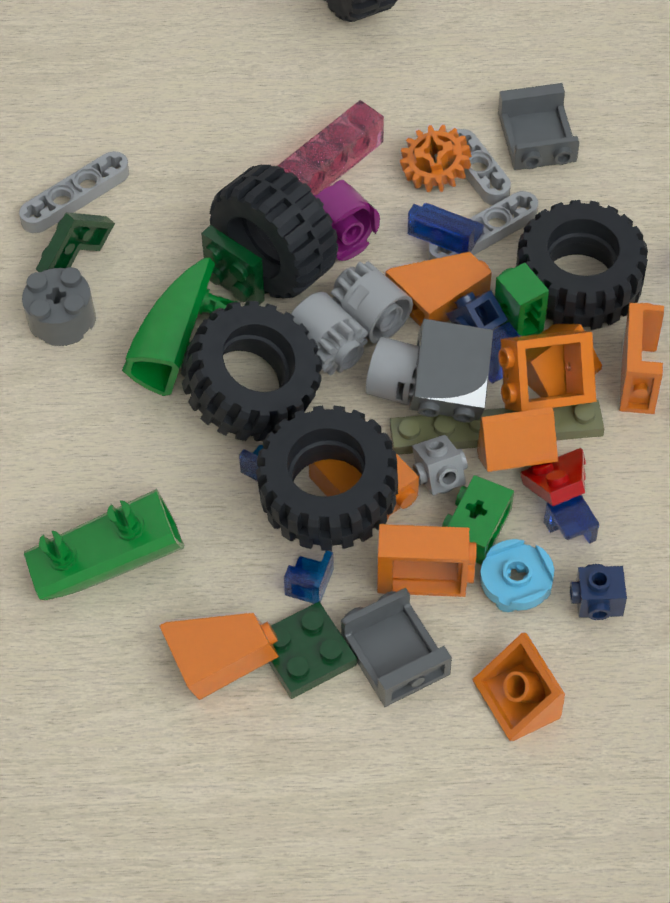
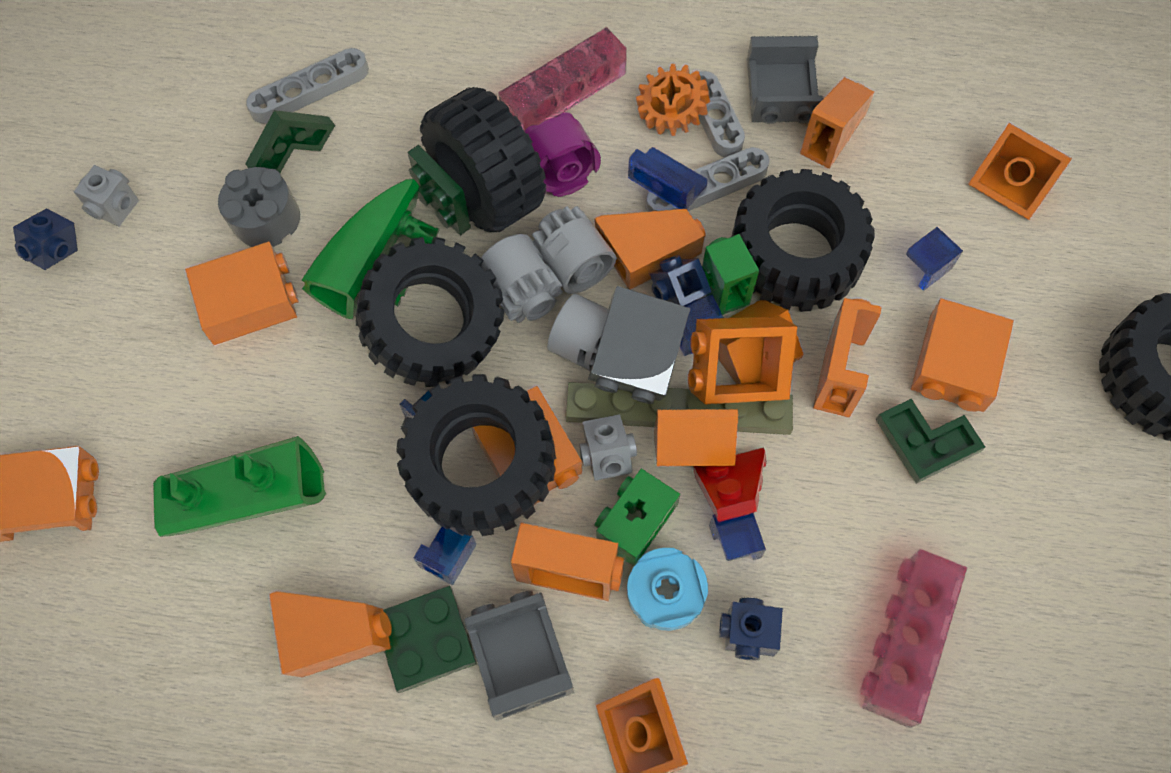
camera: 10 degrees right, 10 degrees up
(62, 384) = (242, 293): none -> orange brick
(593, 158) = (835, 121): none -> orange slope

